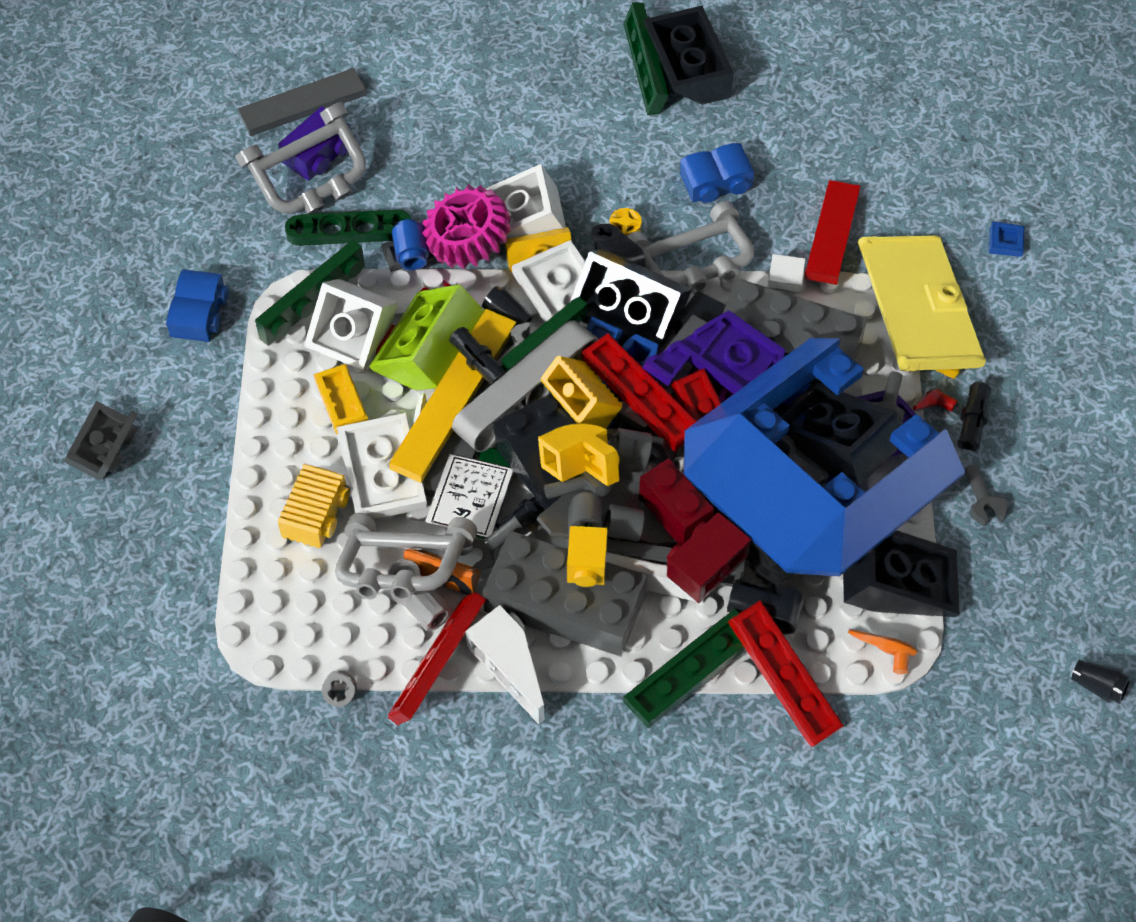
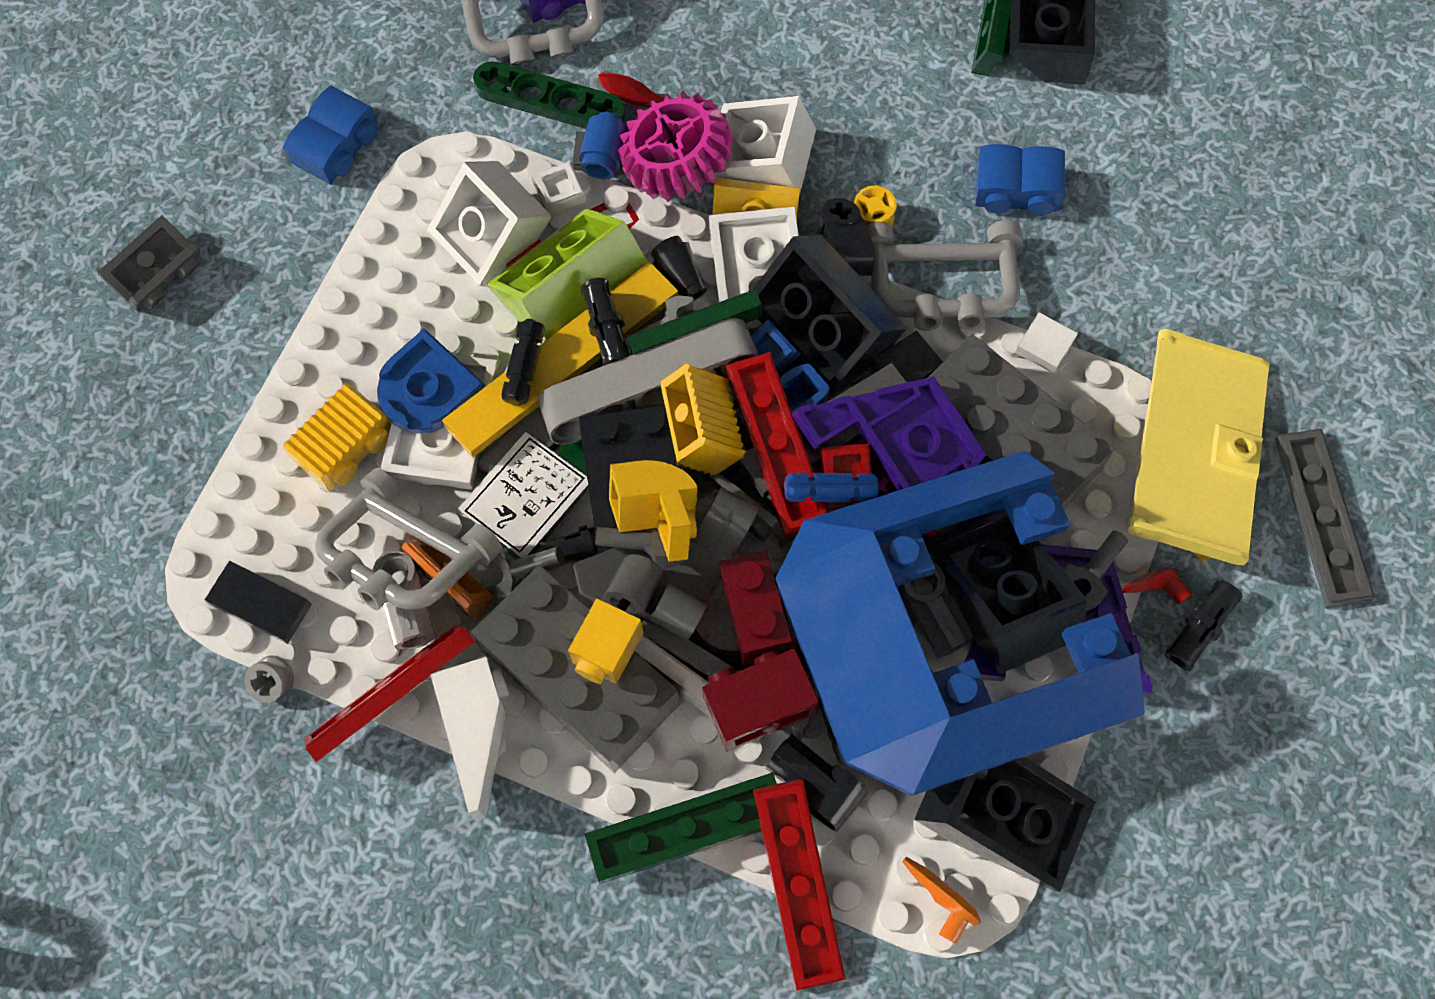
camera: 25 degrees right, 10 degrees up
(302, 299) = (434, 175): dark green plate -> none
(306, 638) = (258, 602): none -> black tile
(340, 396) = (436, 306): yellow plate -> none
(362, 446) = (424, 385): none -> blue tile
(389, 283) = (559, 187): none -> white tile
(405, 202) = (628, 89): none -> red bar
(431, 403) = (523, 362): none -> black axle
(692, 403) = (831, 487): none -> blue axle
(832, 232) = (1131, 308): red tile -> none
(983, 498) = (1166, 739): dark grey bar -> none
(1006, 239) = (1356, 396): blue tile -> none
(1020, 323) = (1324, 518): none -> dark grey tile

